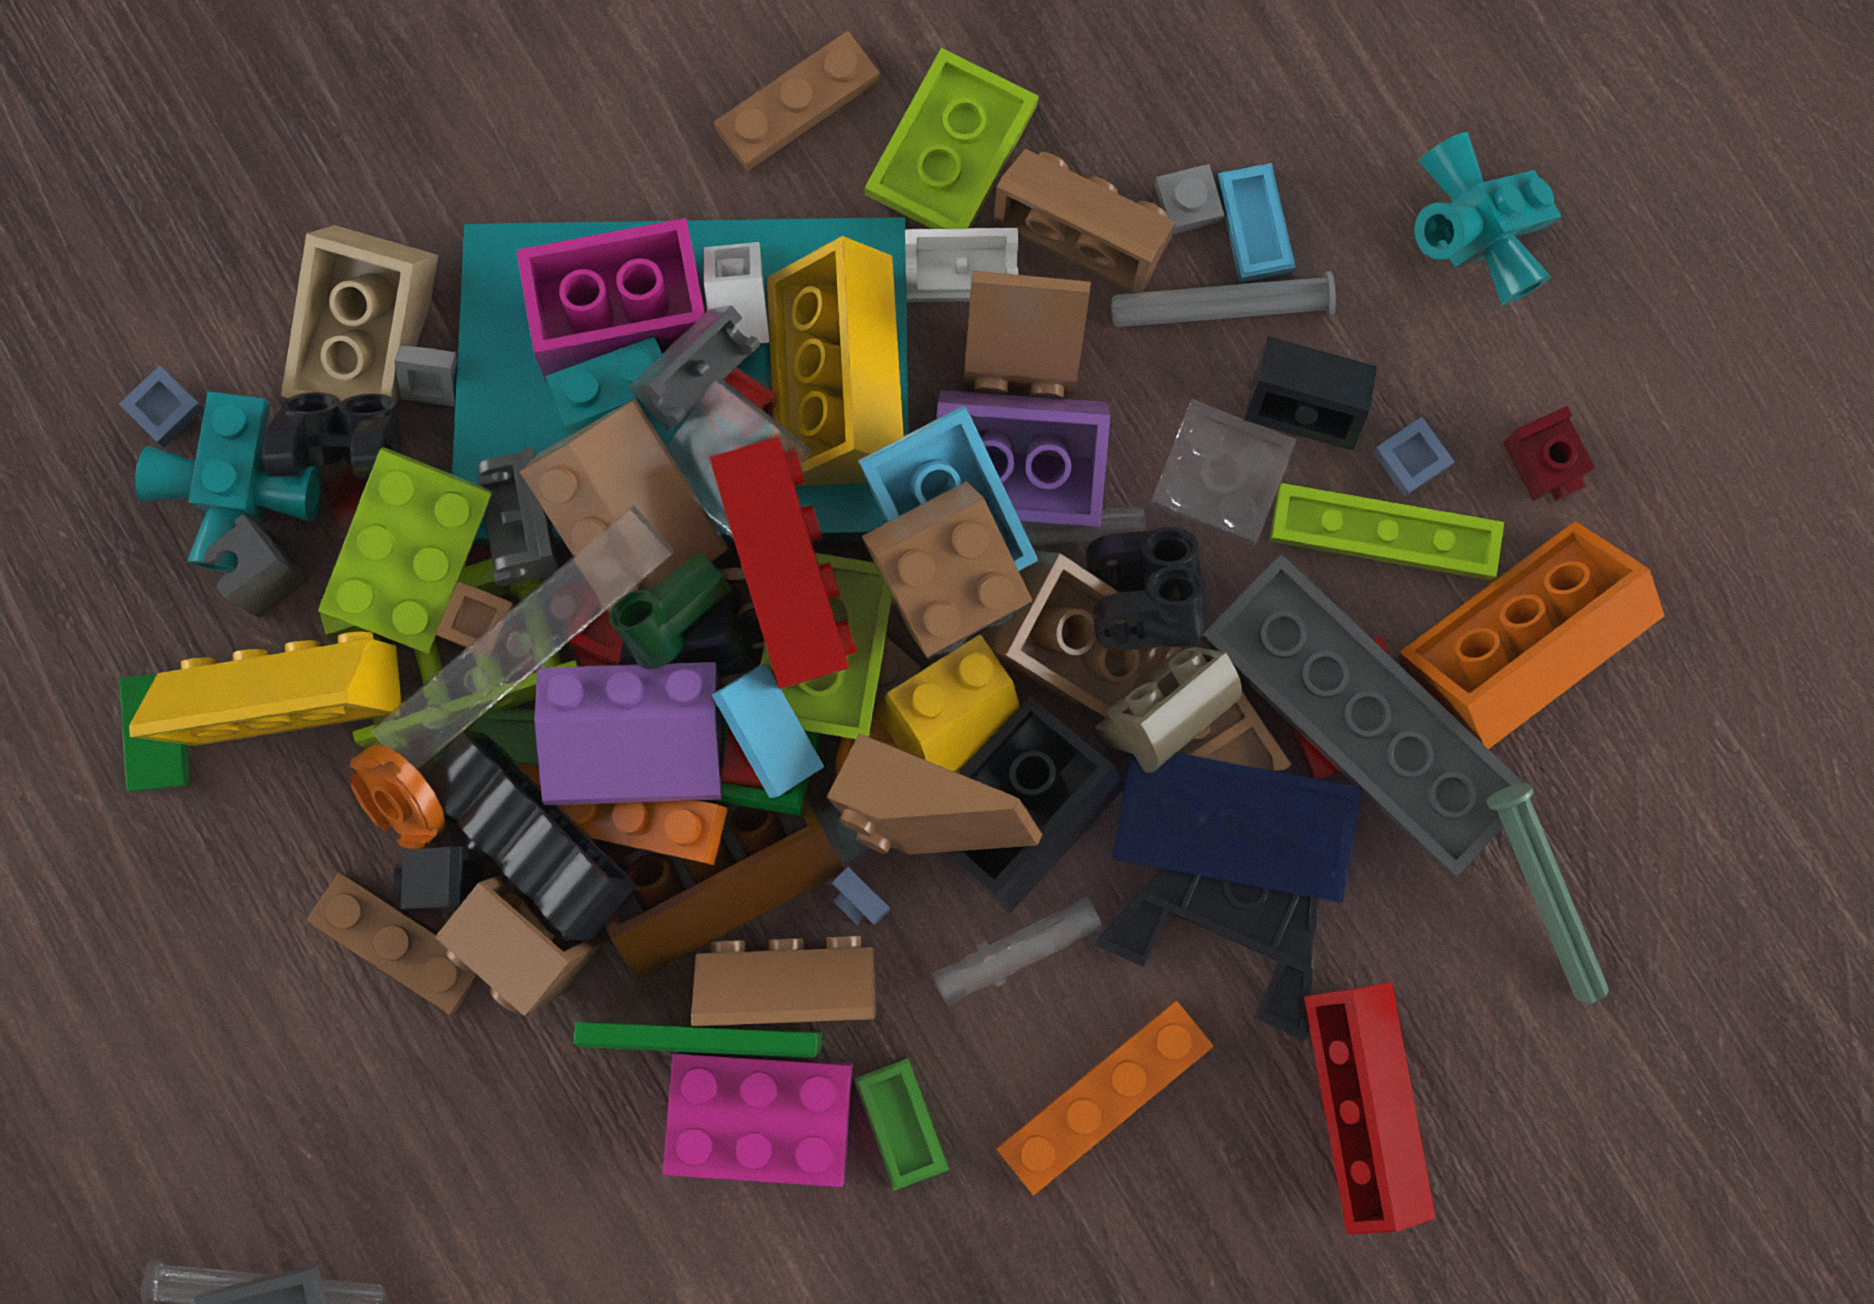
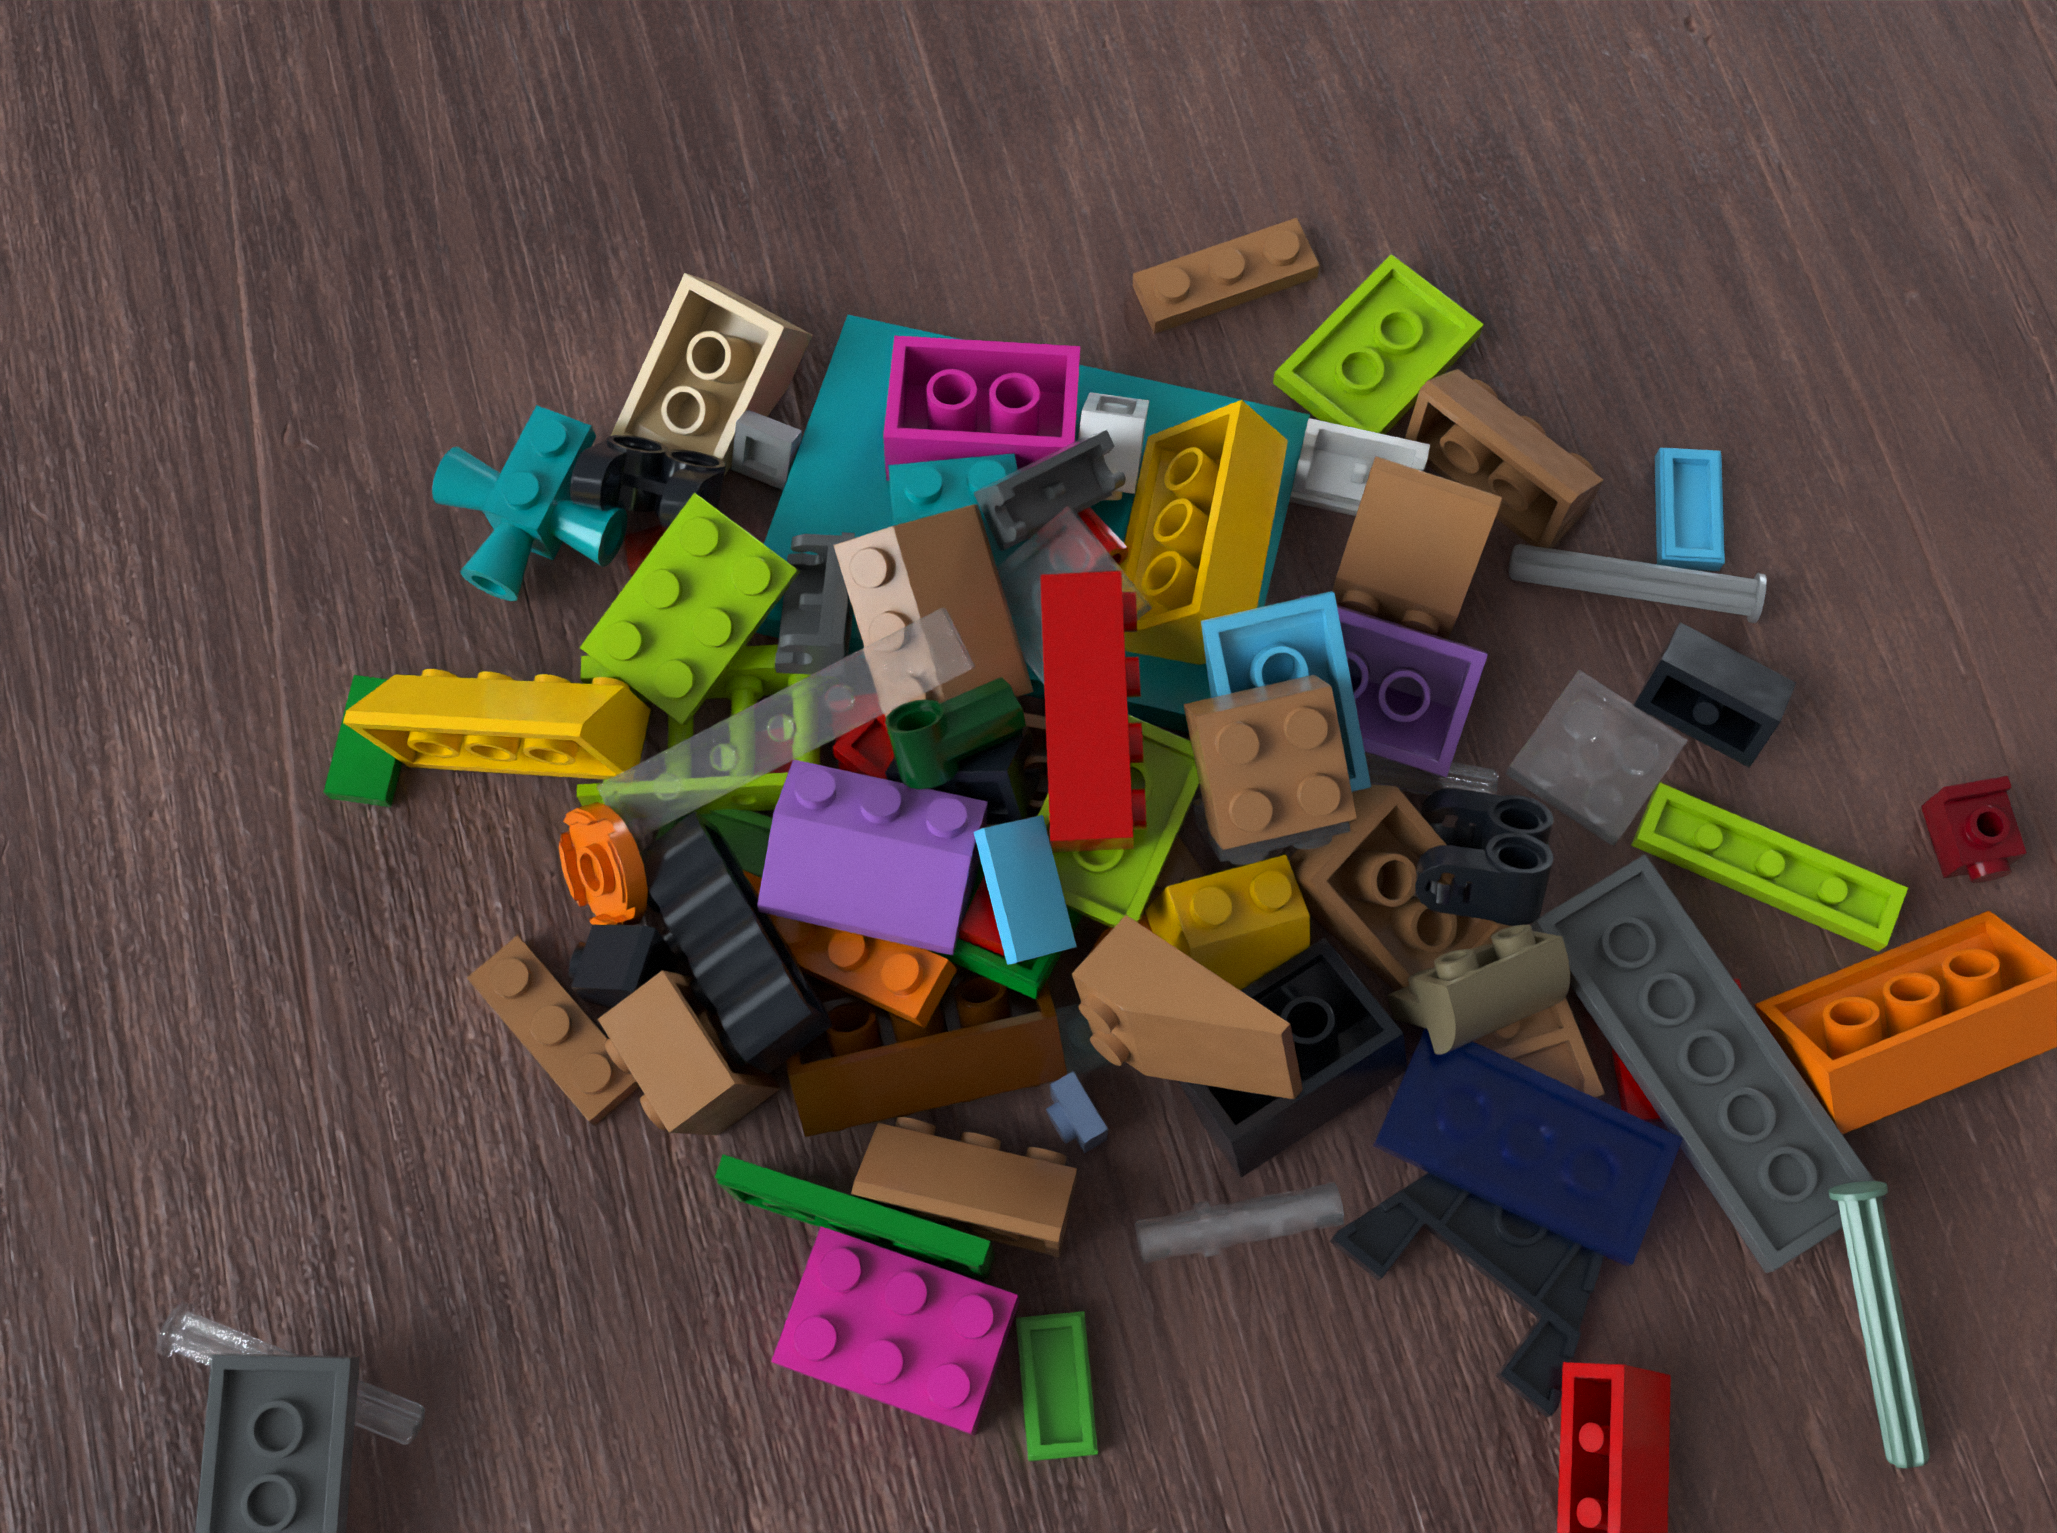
camera: 20 degrees right, 10 degrees down
(161, 406) = (485, 416): sand blue plate -> none
(263, 569) = (533, 600): dark grey hinge -> none
(470, 614) = (734, 690): medium nougat plate -> none
(1104, 1097) = (1299, 1421): orange plate -> none
(1190, 198) = (1625, 466): light grey plate -> none
(1413, 456) = (1816, 793): sand blue plate -> none
(1485, 218) = (1950, 558): teal brick -> none

